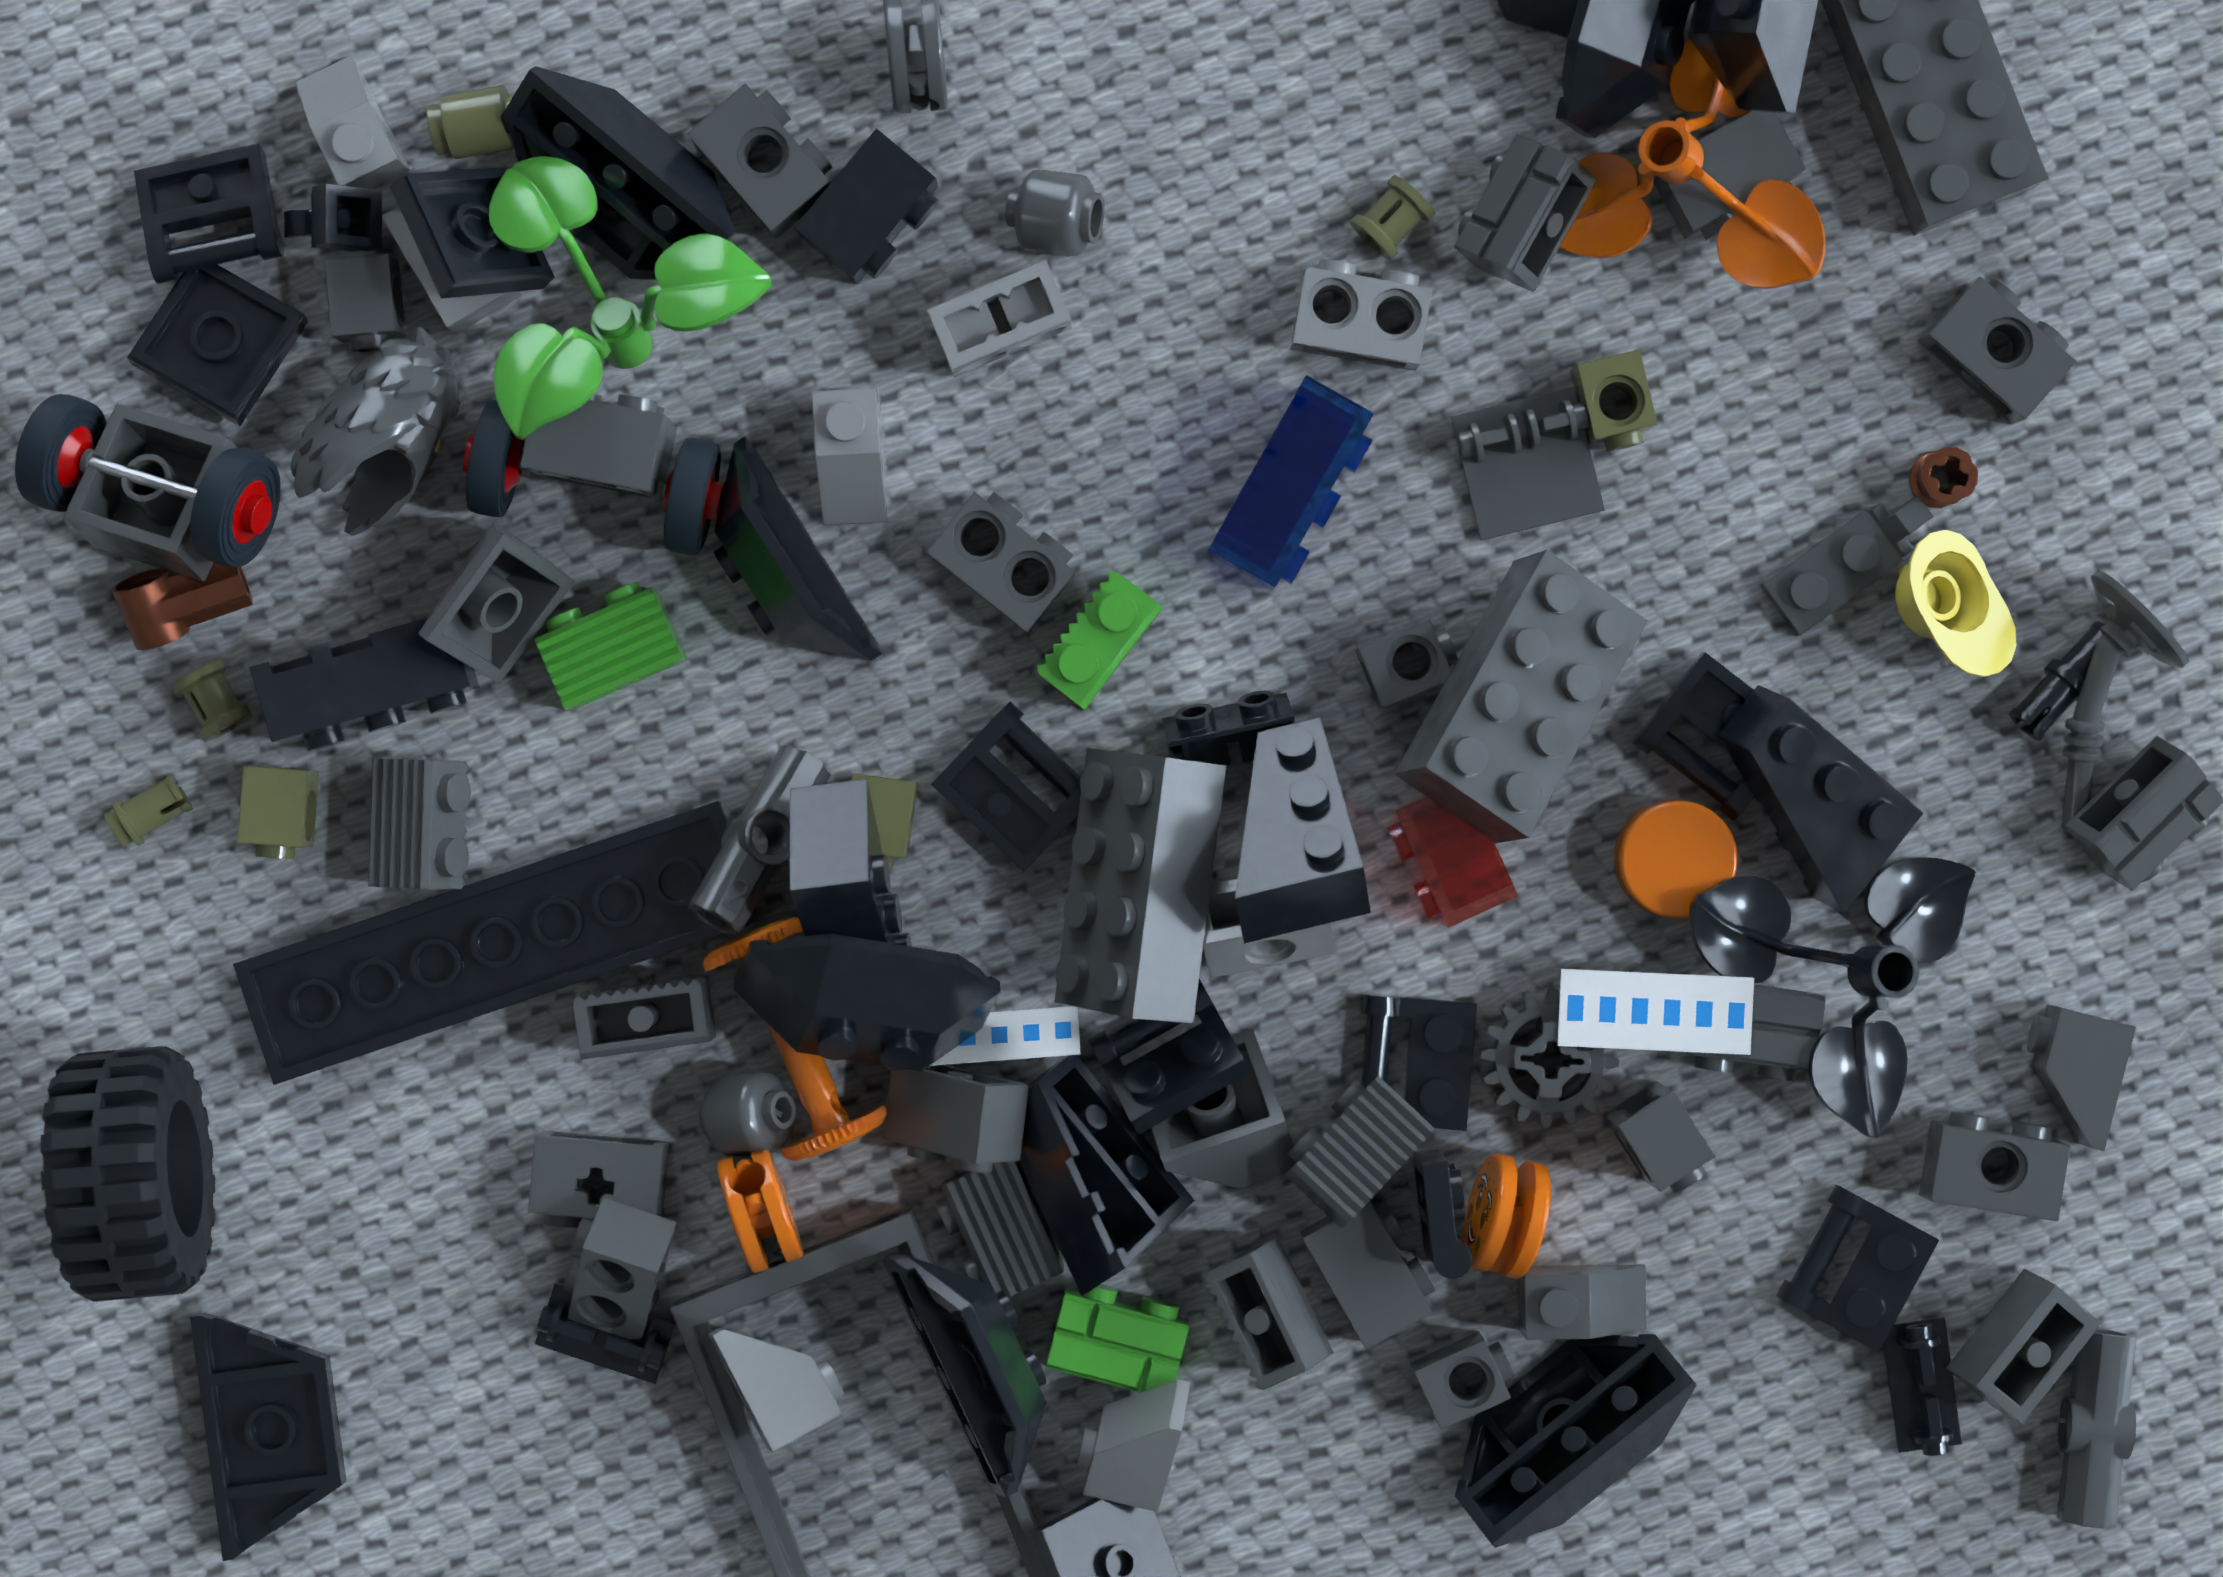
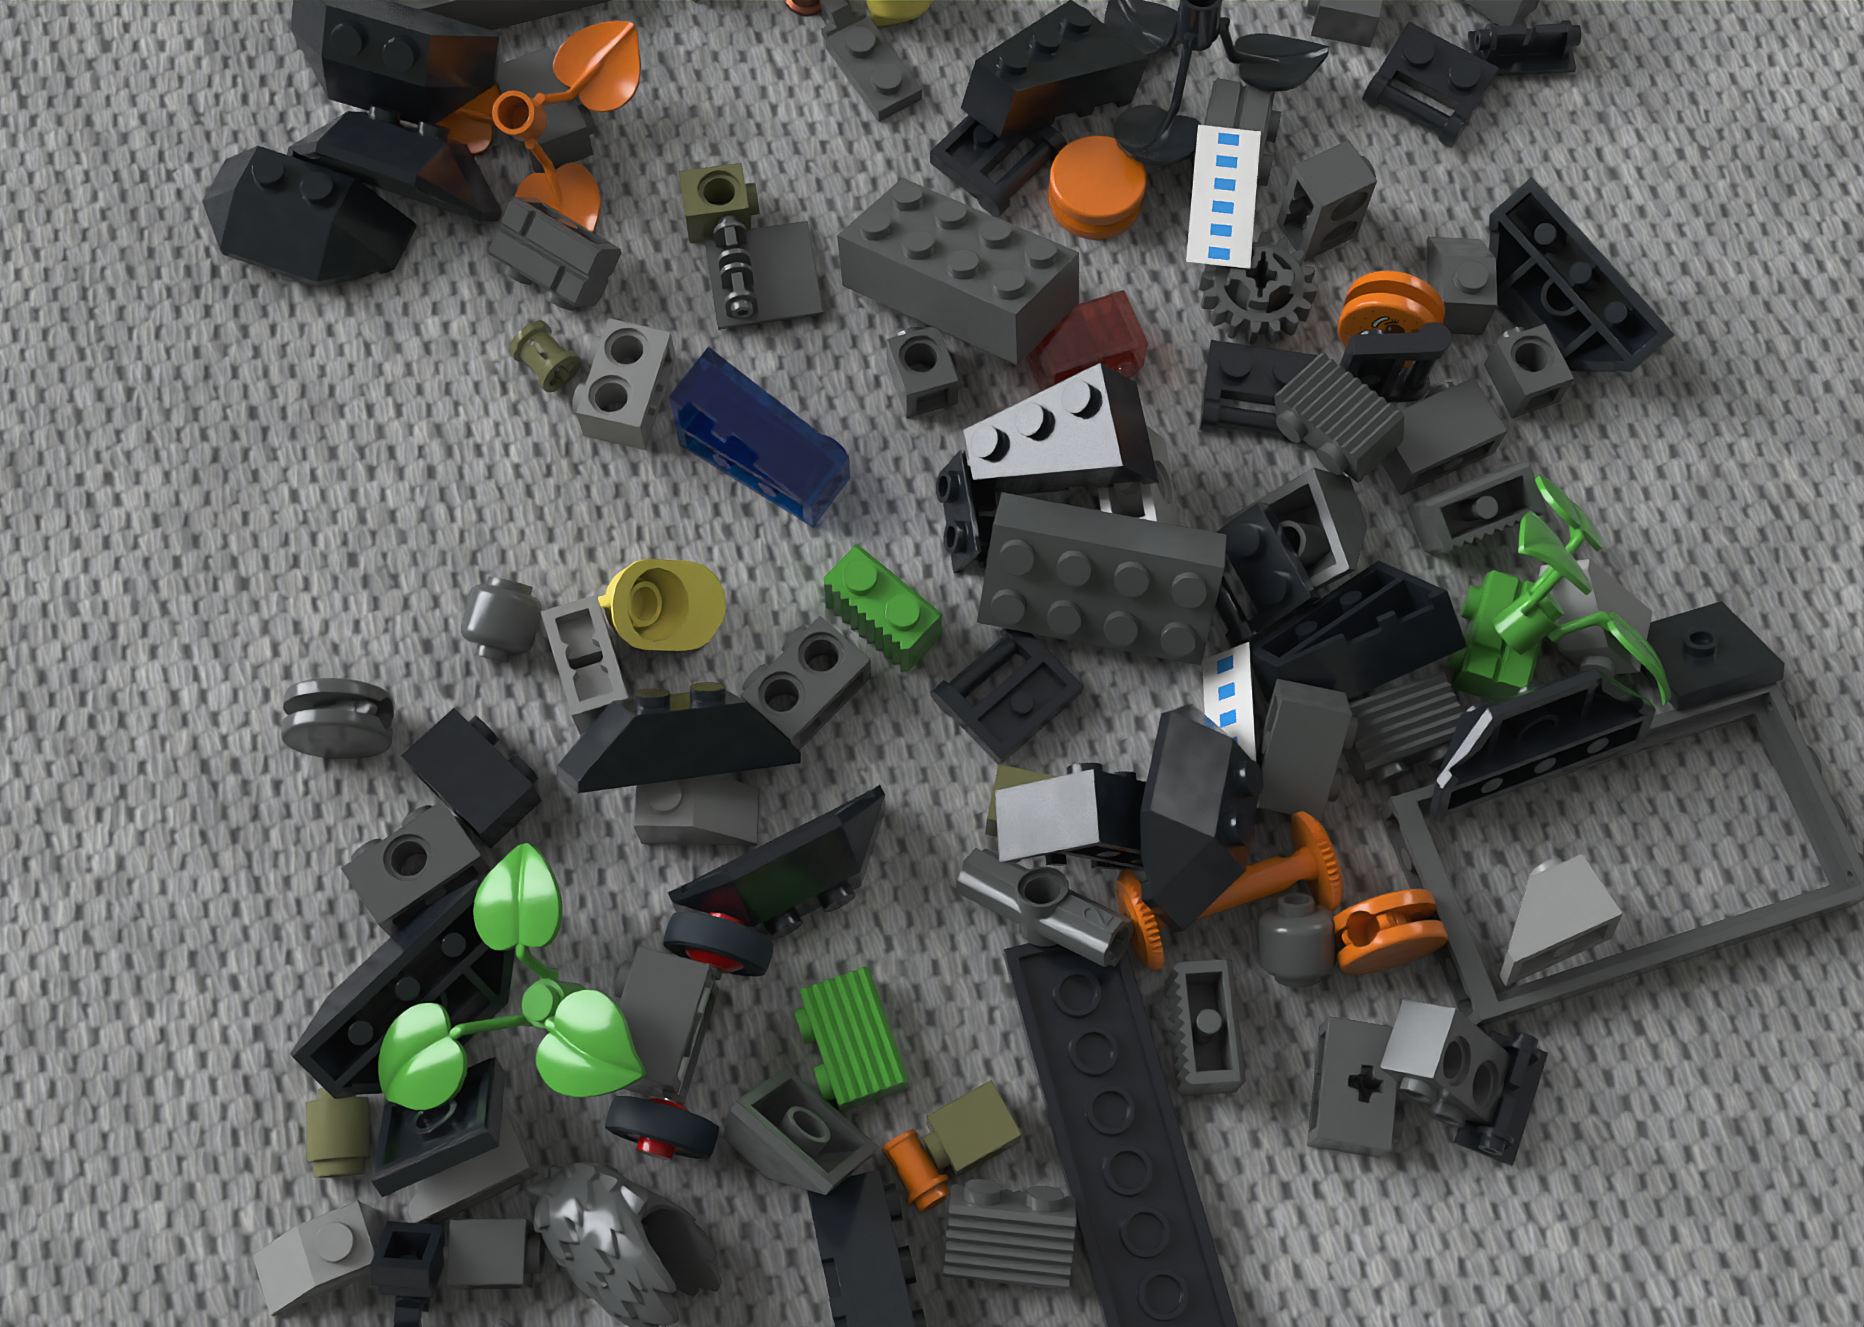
camera: 90 degrees left, 20 degrees down
(482, 725) = (917, 1171): none -> orange pin
(524, 777) = (970, 1130): none -> olive brick
(903, 421) = (673, 739): none -> black wedge
(1081, 393) = (665, 604): none -> light yellow piece
(1128, 1374) = (1537, 611): none -> bright green plant

